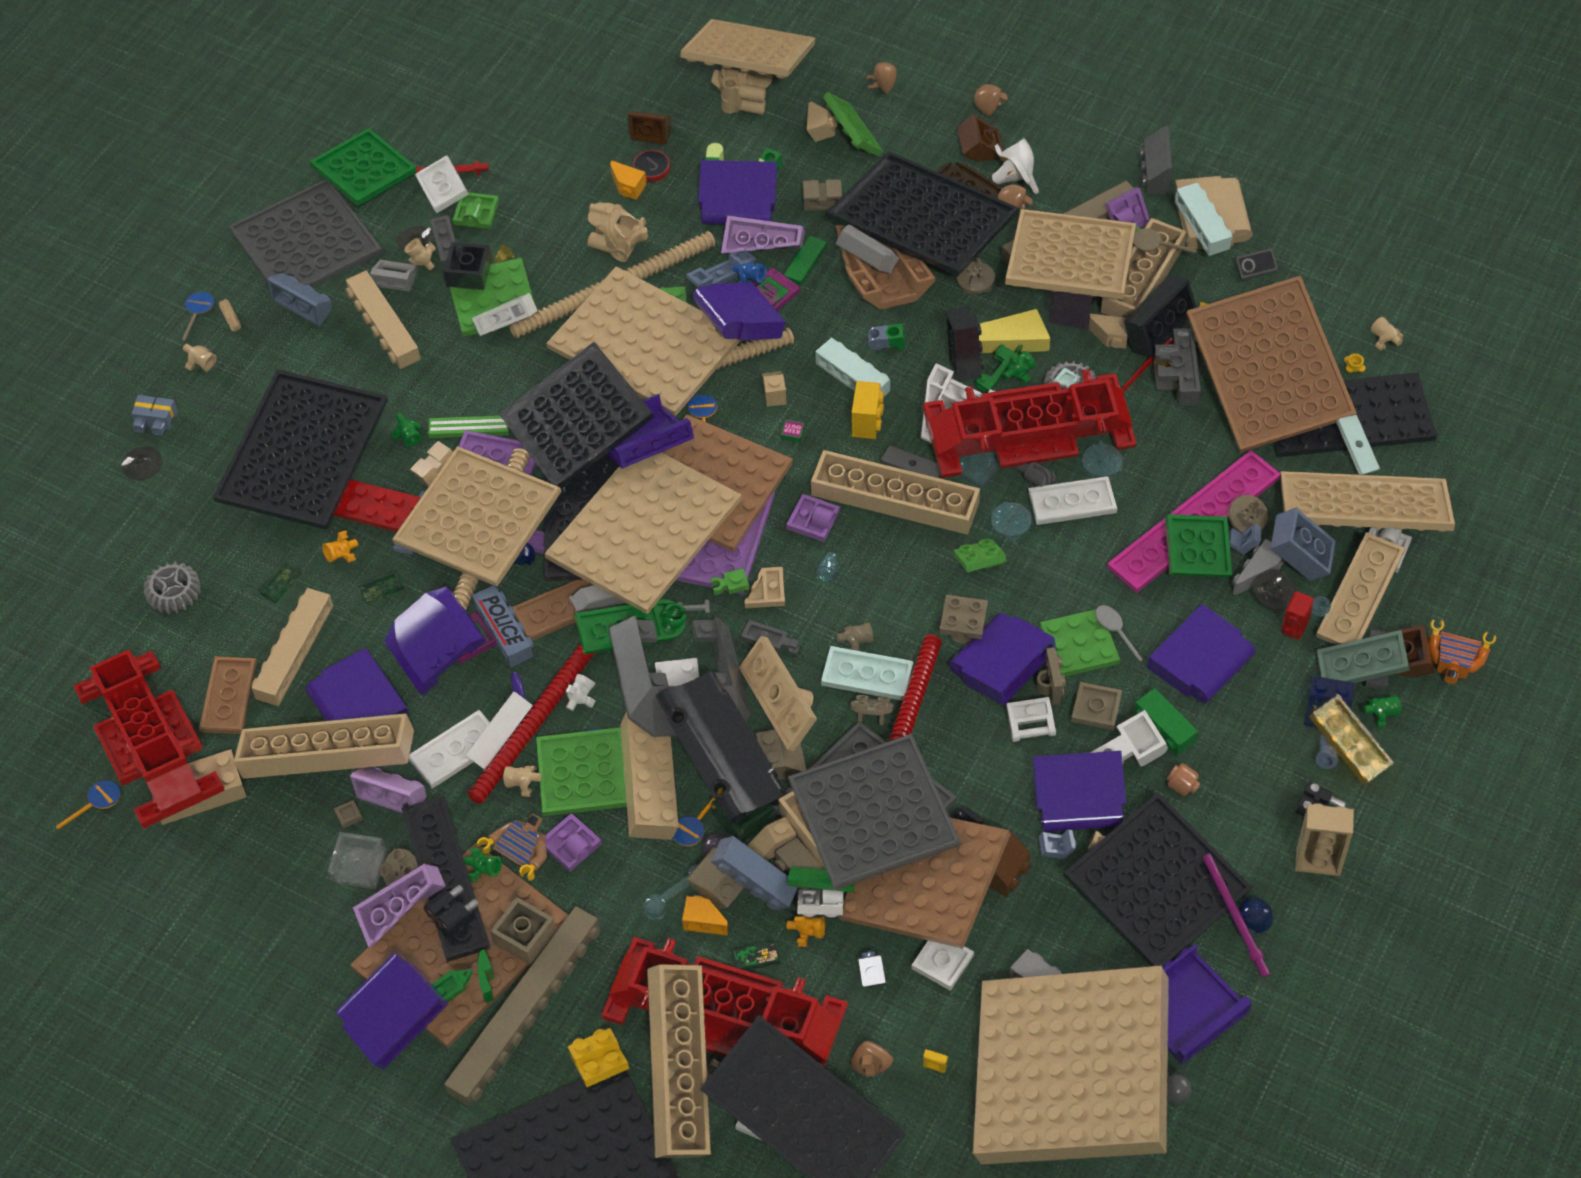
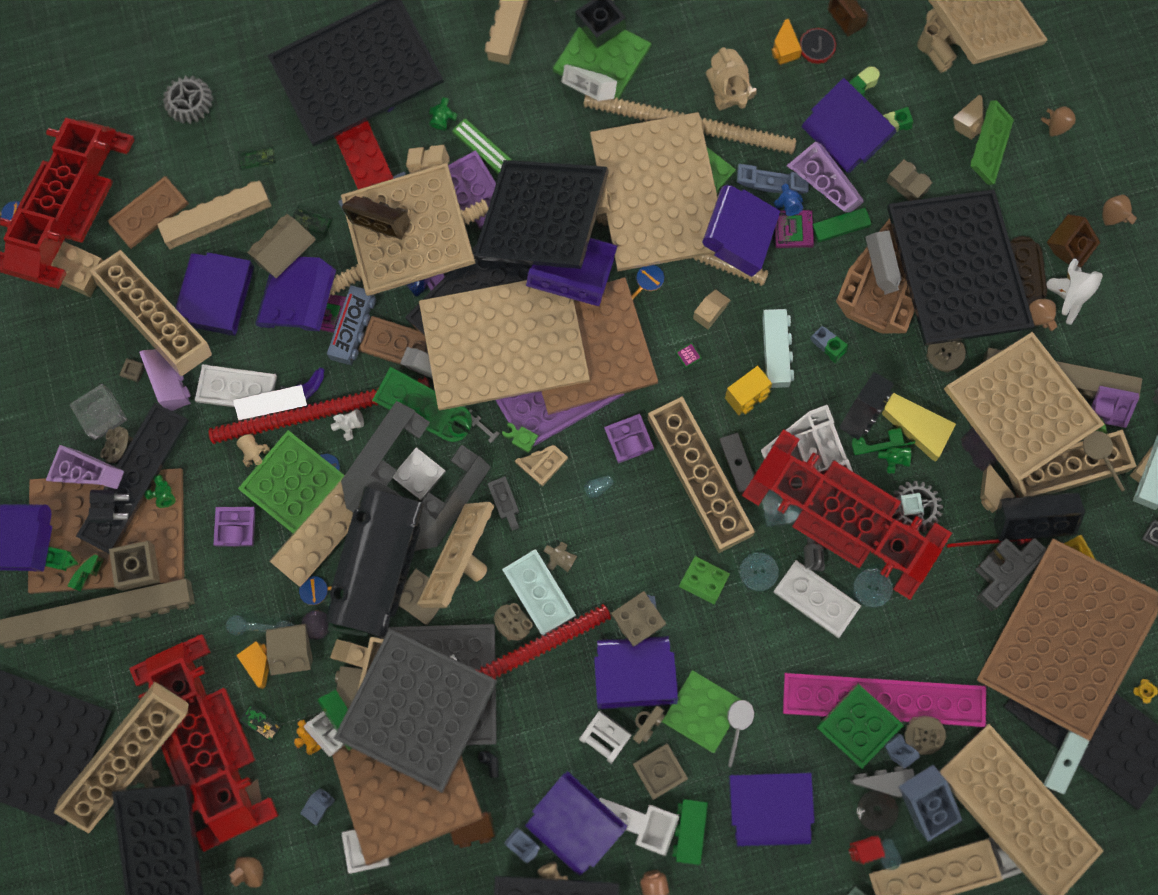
camera: 50 degrees right, 20 degrees up
(340, 548) = (313, 168): light orange piece -> none
(380, 617) = (281, 245): none -> dark tan slope
(447, 521) = (377, 216): none -> dark brown slope
(504, 253) = (643, 28): clear yellow rock -> none
(519, 843) = (200, 500): torso -> none
(598, 1057) = (97, 695): yellow plate -> none
(753, 873) = (303, 671): sand blue brick -> none

